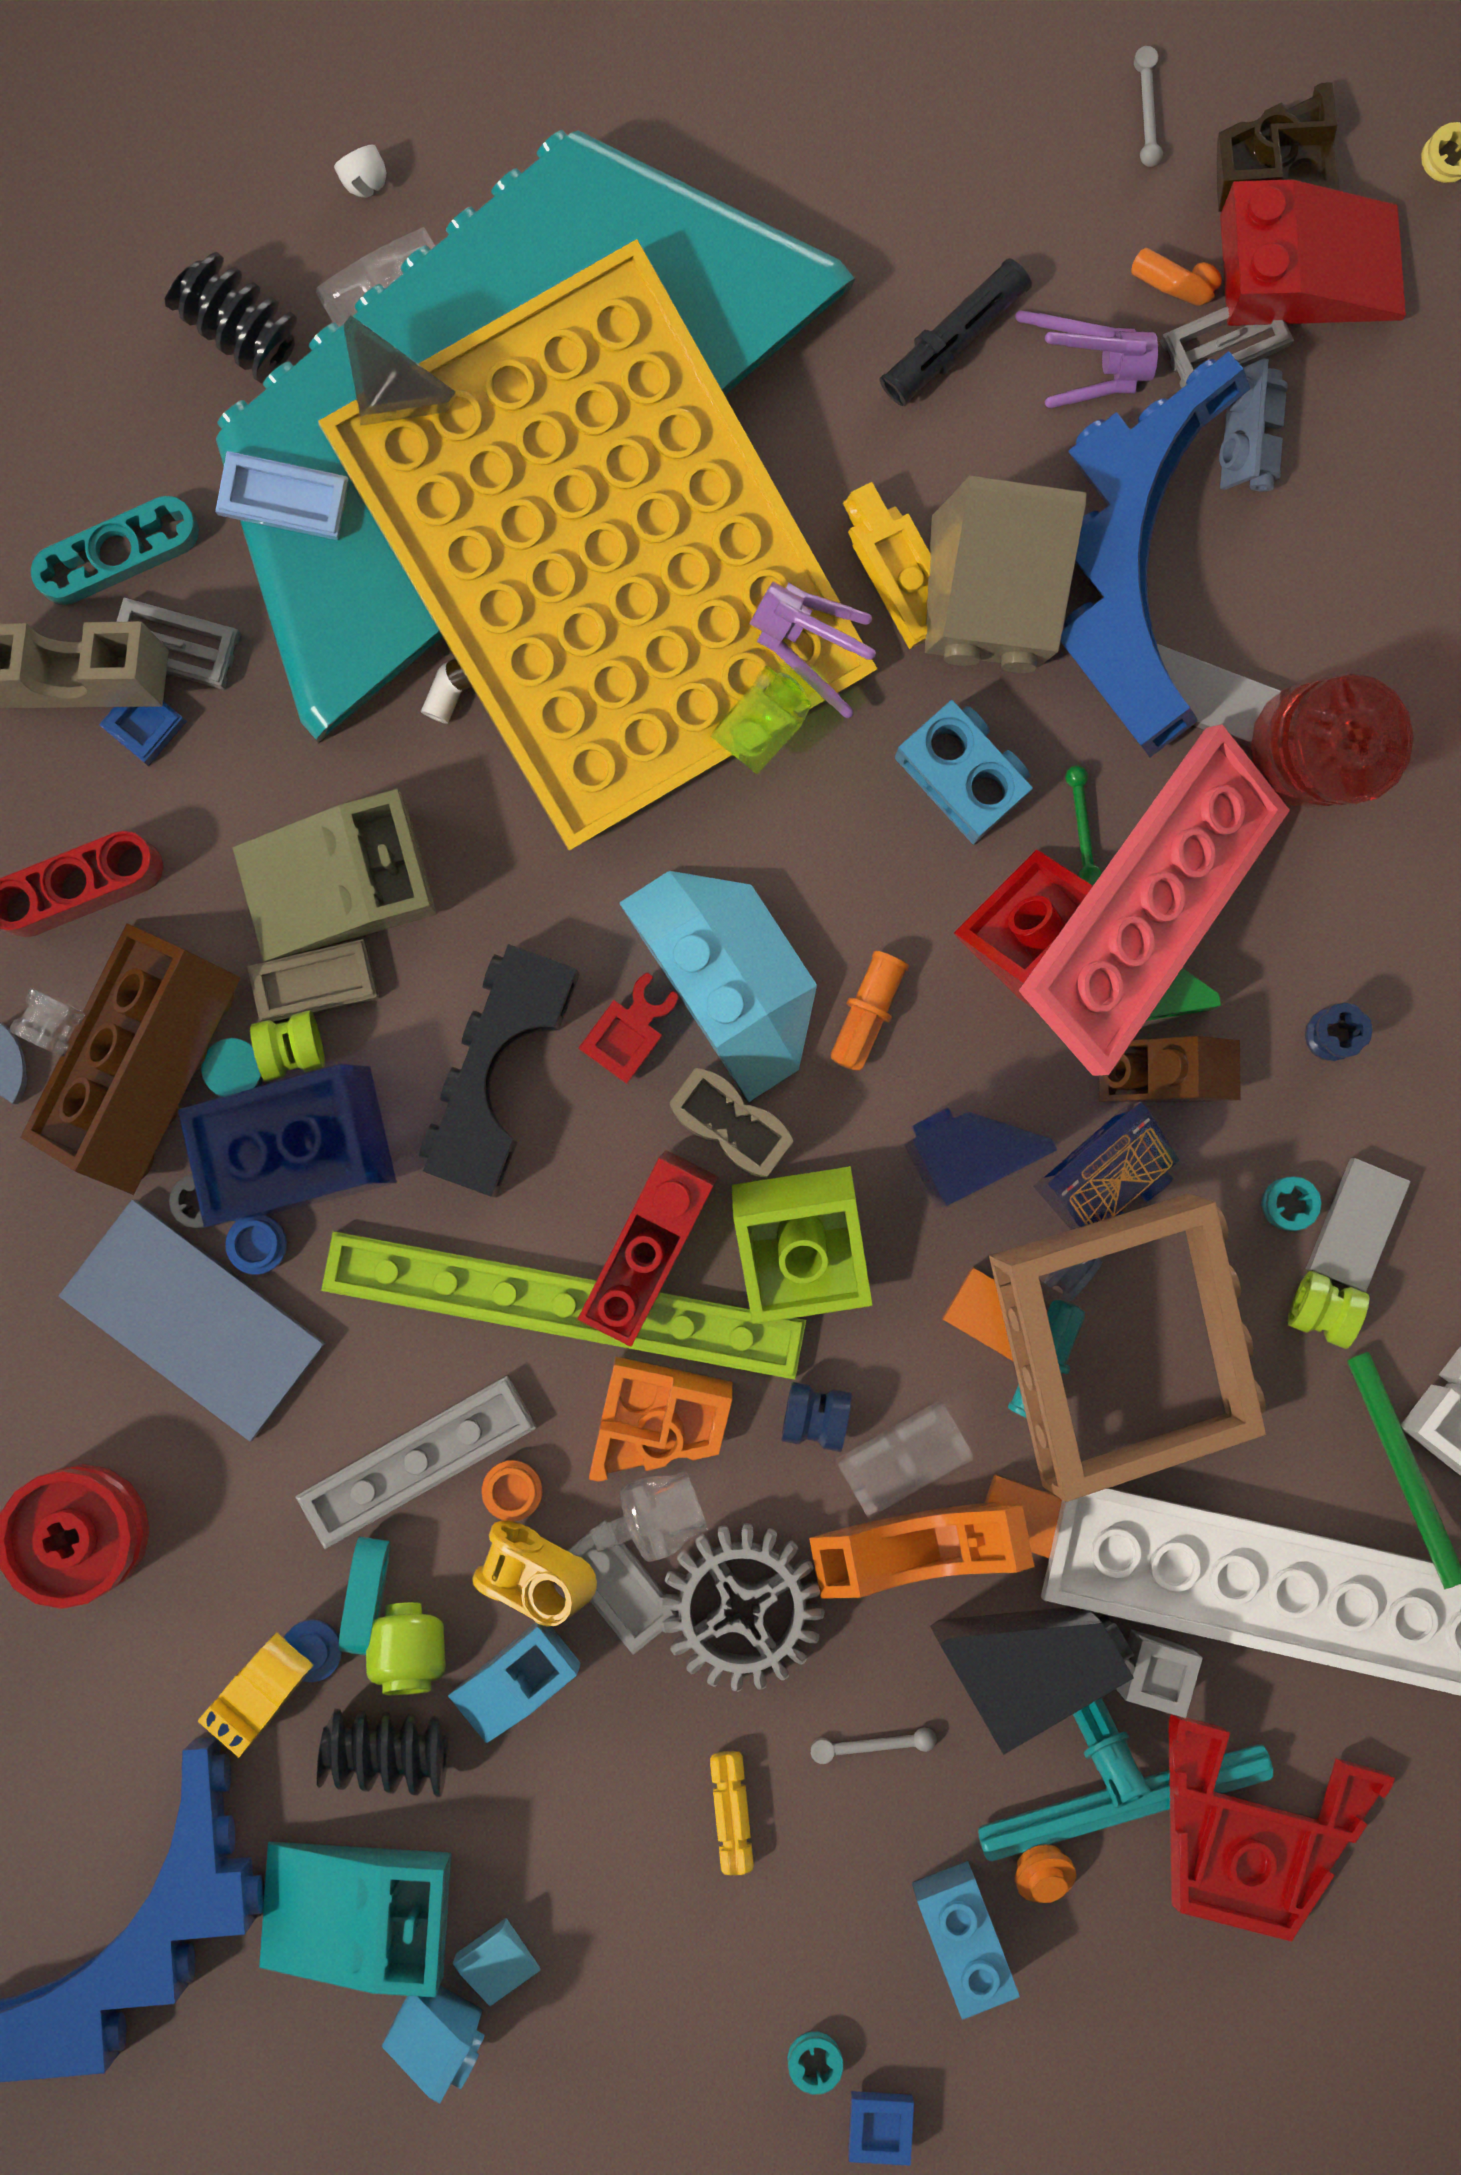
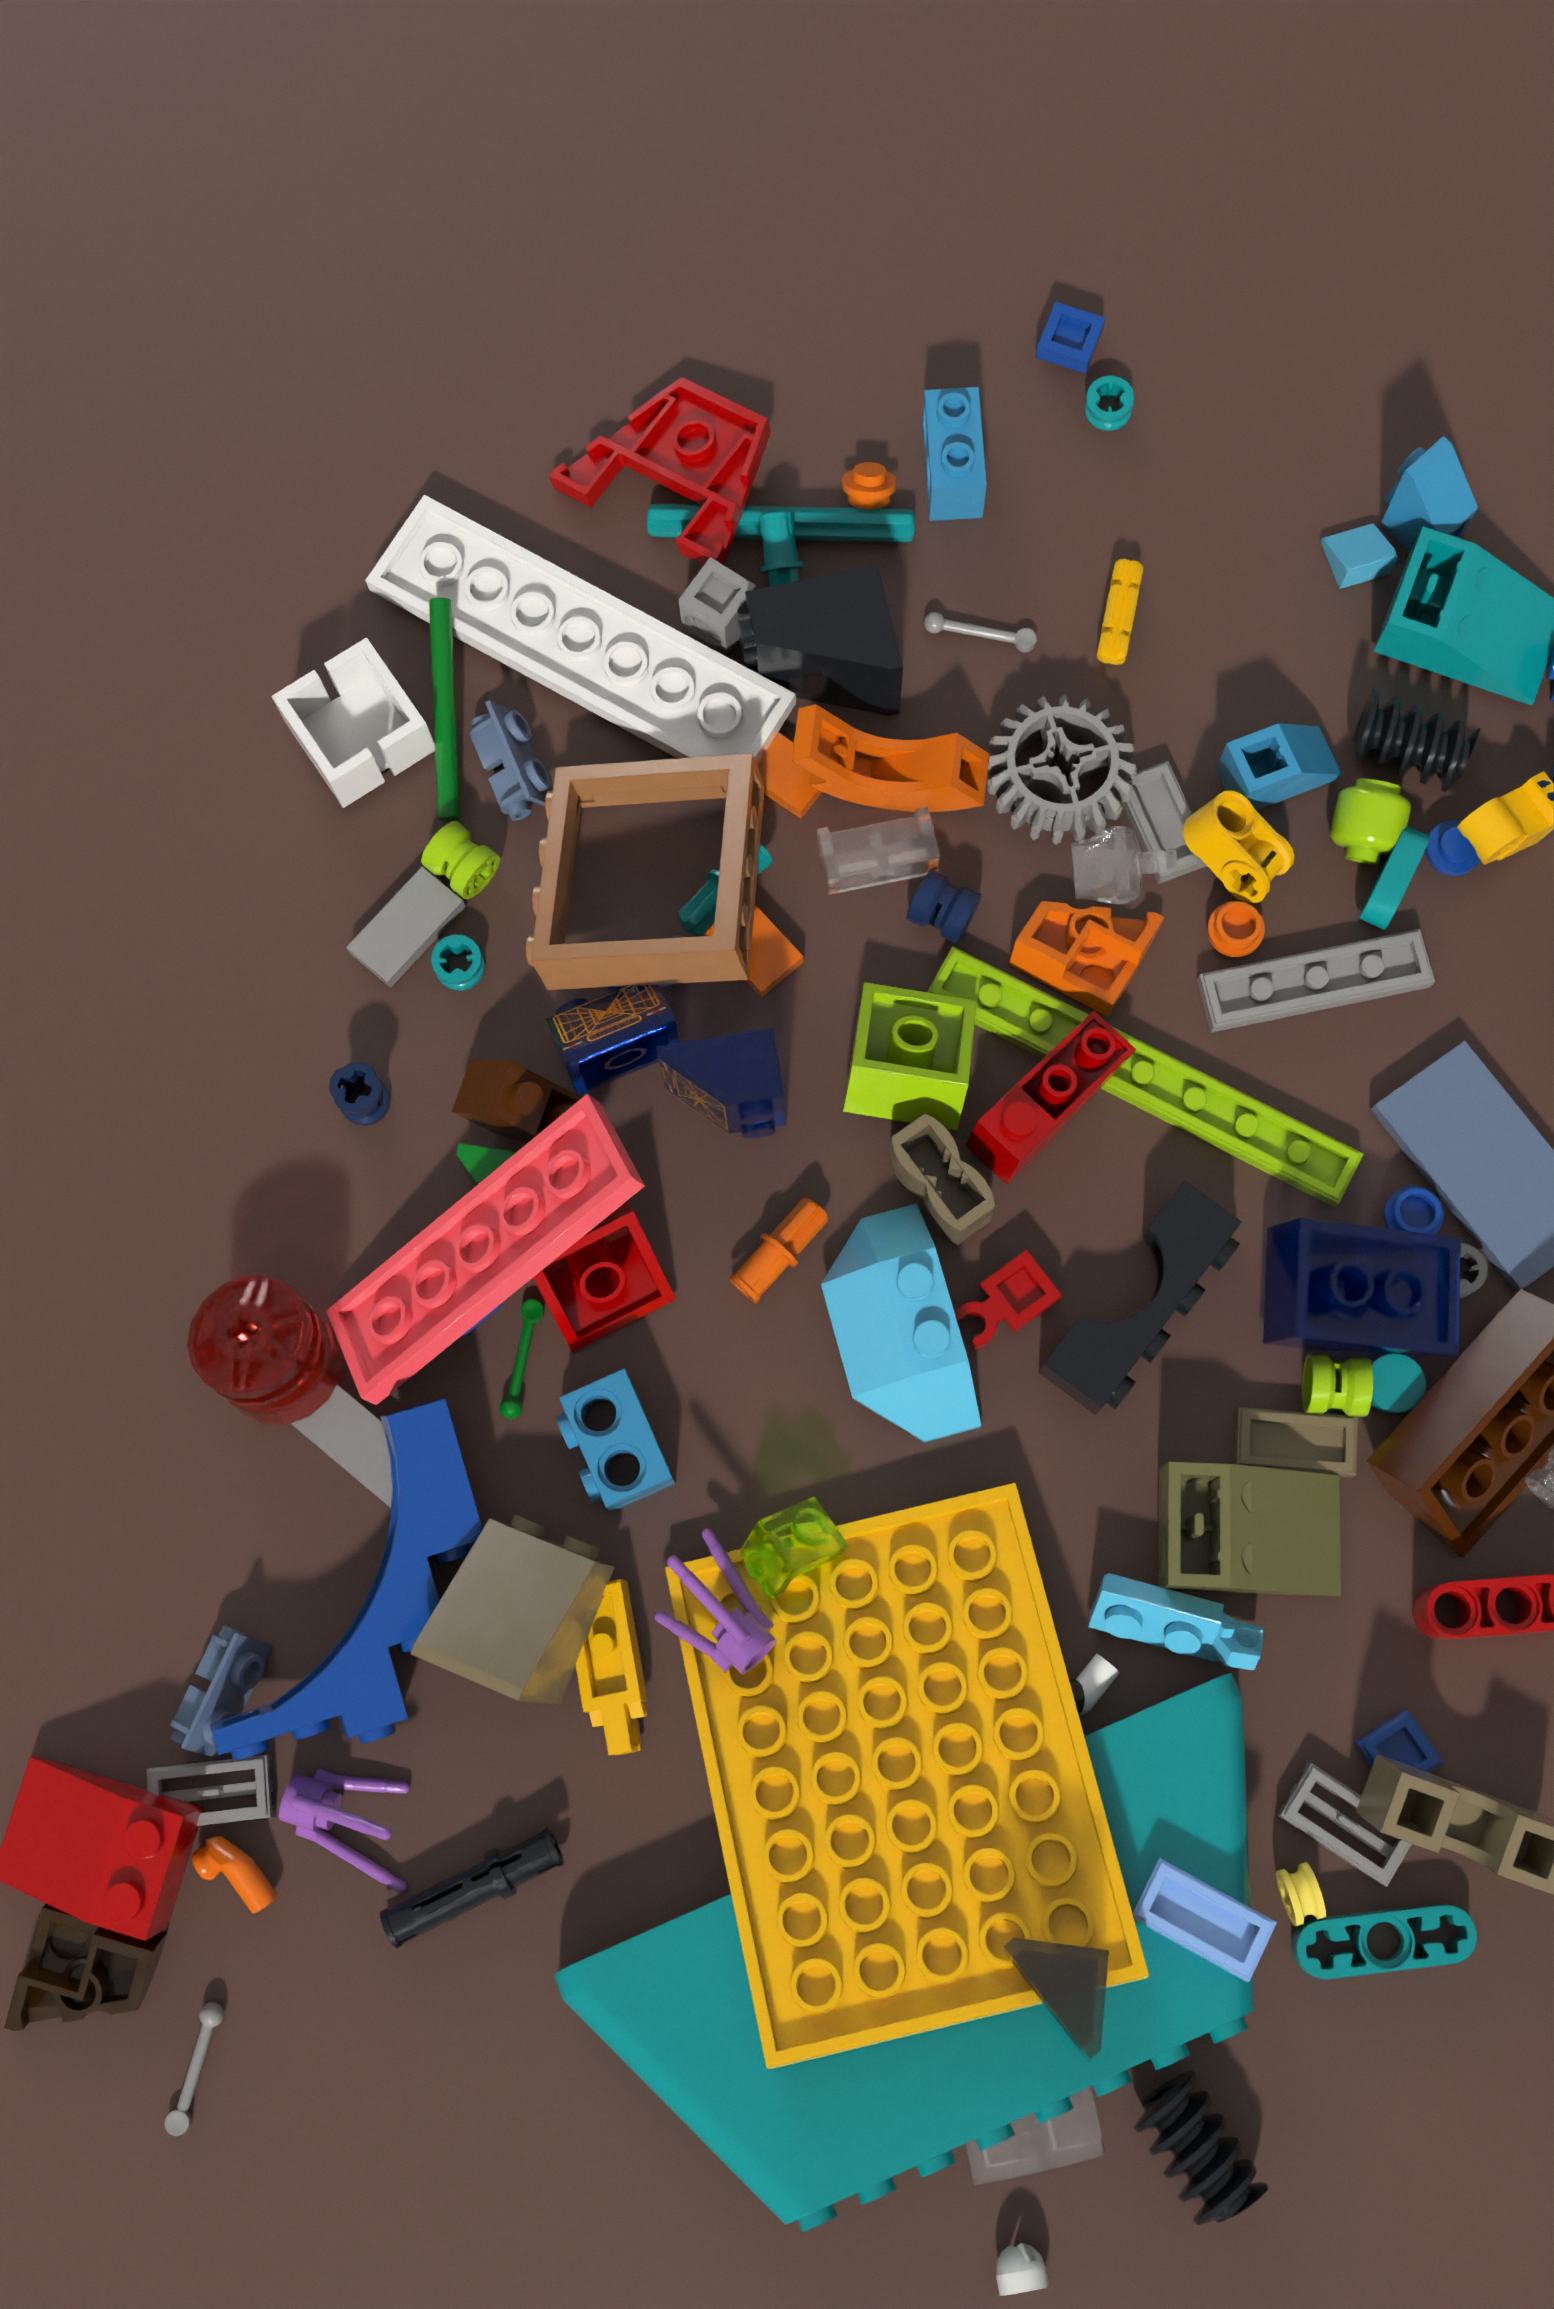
camera: 155 degrees left, 10 degrees down
(200, 564) = (1300, 1894): none -> light yellow bush
(376, 769) = (1174, 1622): none -> medium azure hinge
(1330, 1459) = (504, 739): none -> sand blue hinge

